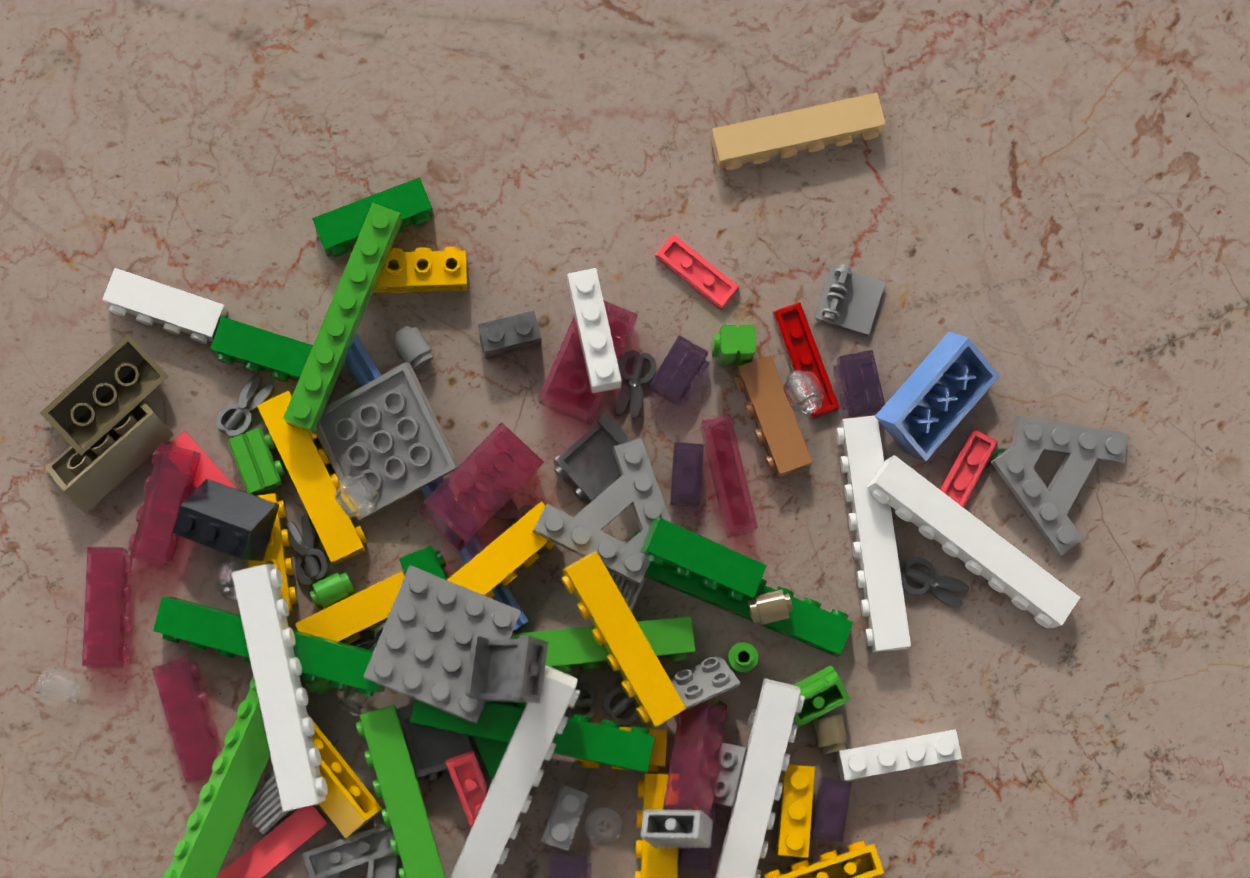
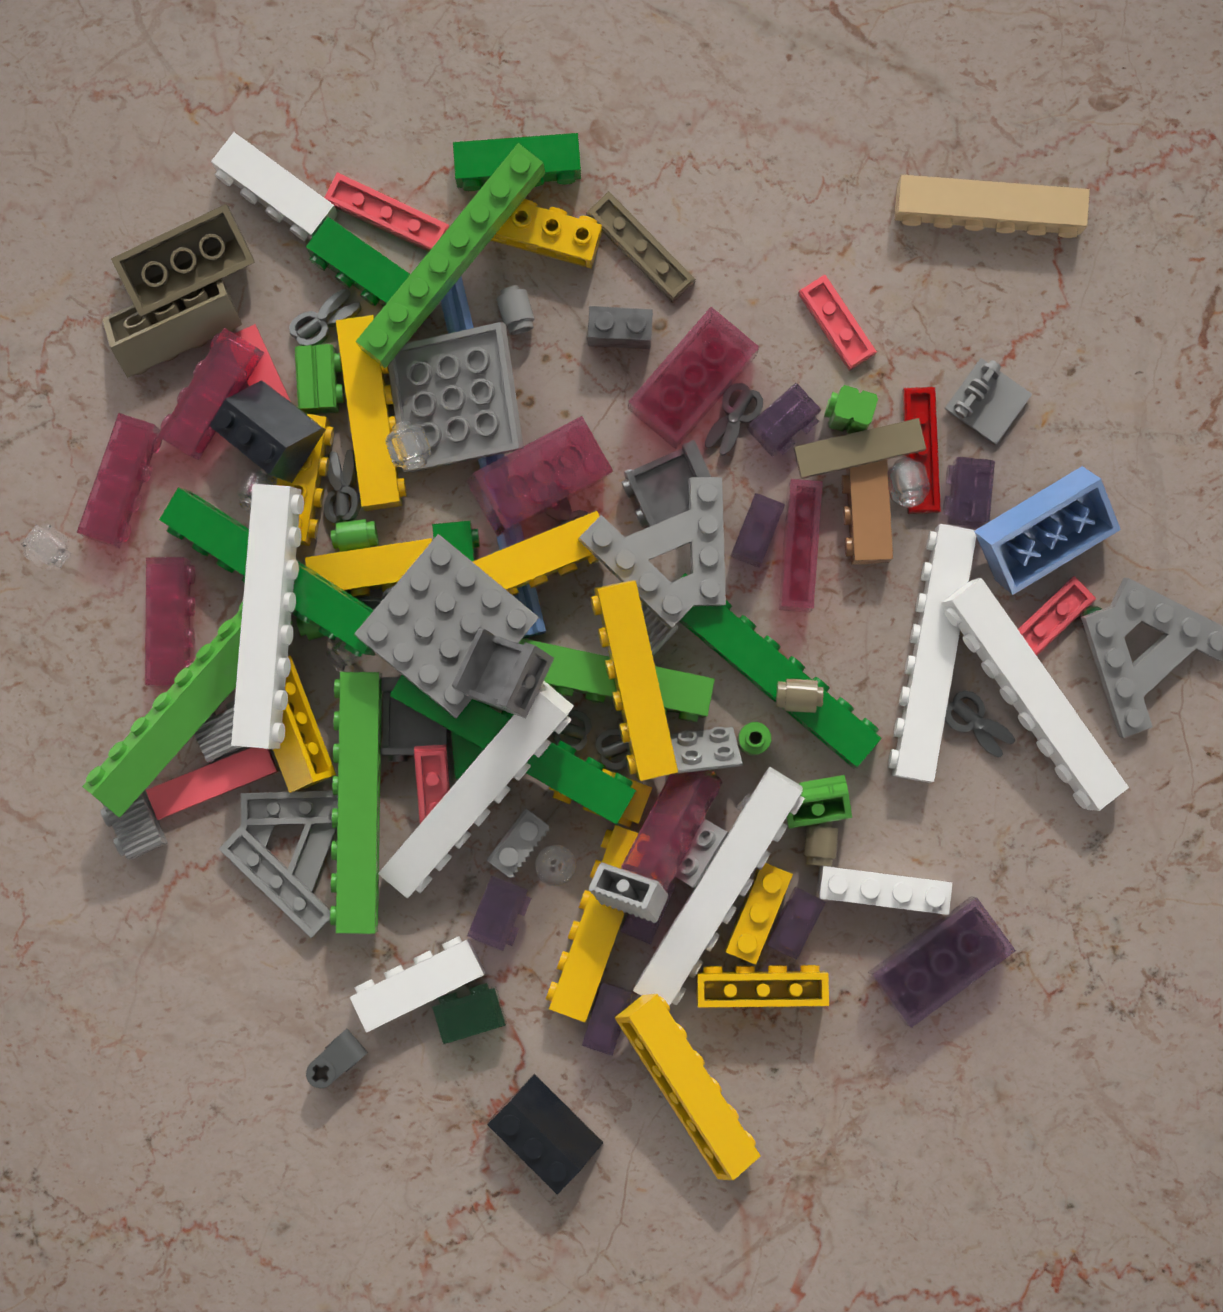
camera: 25 degrees right, 5 degrees up
(271, 297) = (385, 212): none -> coral tile
(505, 259) = (641, 247): none -> dark tan tile
(594, 330) = (707, 349): white brick -> none
(703, 559) = (744, 623): green brick -> none
(752, 375) = (859, 448): none -> dark tan tile
(969, 802) = (941, 961): none -> clear purple brick

